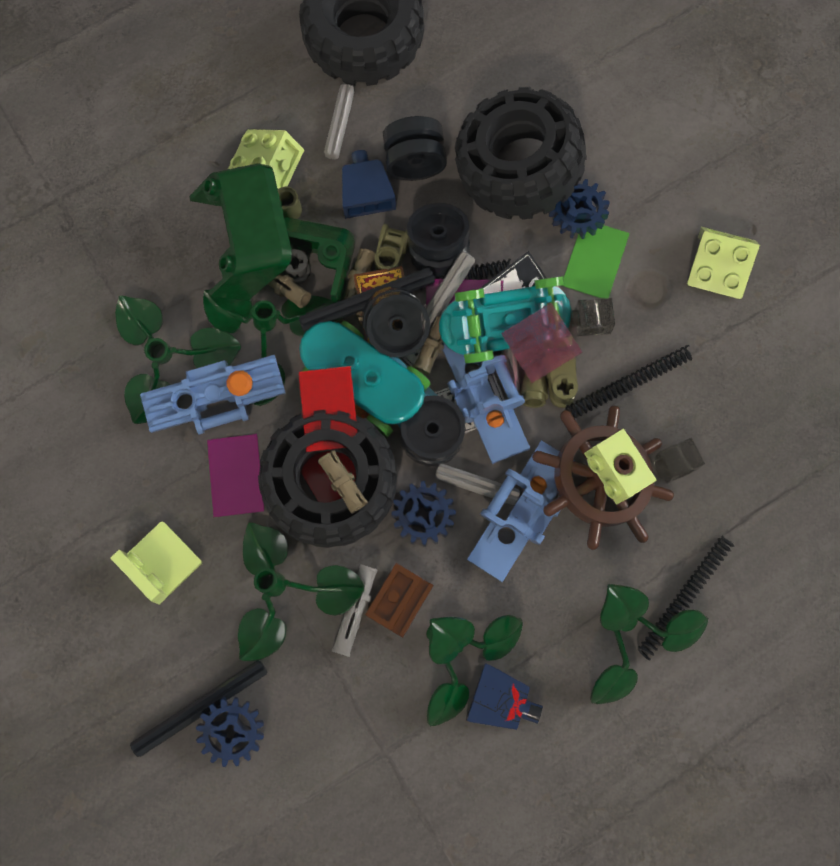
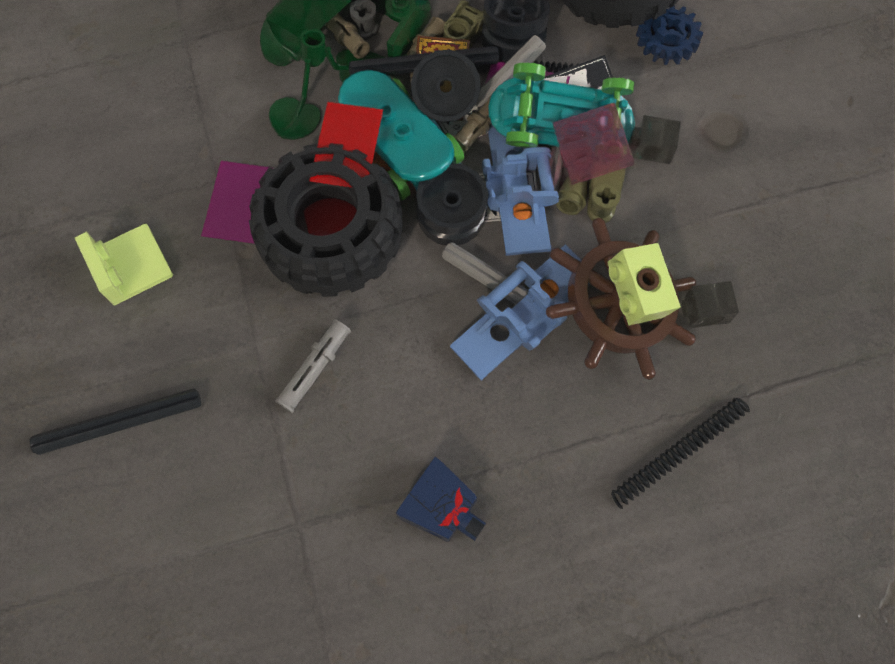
camera: 15 degrees right, 5 degrees down
(138, 321) = (191, 37): dark green plant -> none
(211, 384) = (239, 103): medium blue piece -> none
(215, 729) = (129, 463): dark blue gear -> none
(262, 550) = (240, 278): dark green plant -> none
(342, 481) = (335, 215): dark tan pin -> none
(399, 600) = (364, 368): reddish brown plate -> none
(436, 508) = (403, 288): dark blue gear -> none
(448, 638) = (397, 412): dark green plant -> none
(596, 262) = (673, 89): bright green sticker -> none
(620, 612) = (602, 436): dark green plant -> none
(654, 373) = (712, 210): black piece -> none
(723, 263) = (809, 121): yellowish green bracket -> none

